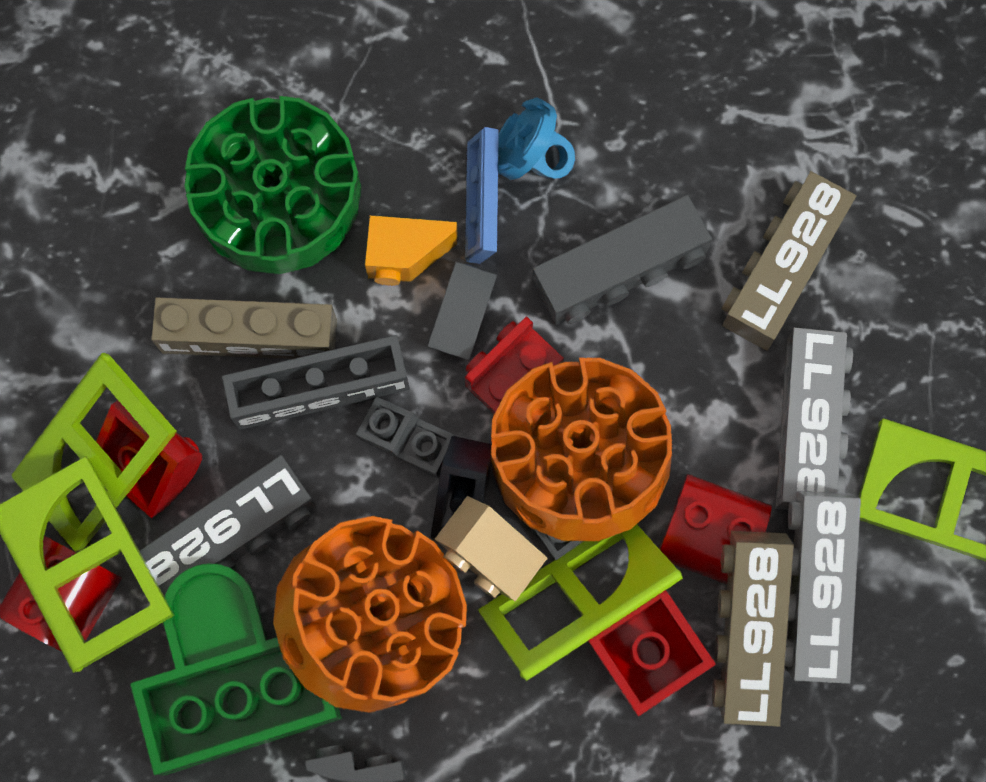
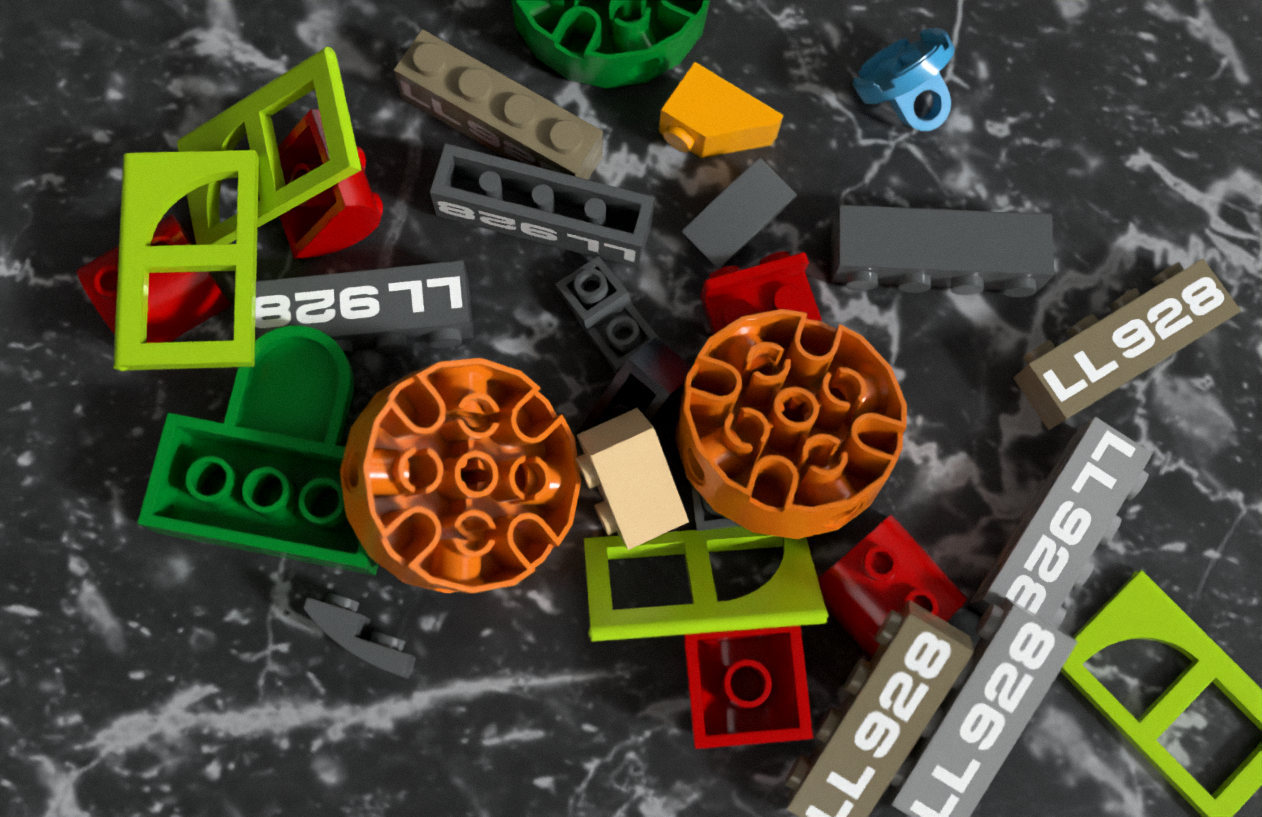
camera: 20 degrees right, 0 degrees up
(482, 196) = (825, 105): medium blue tile -> none

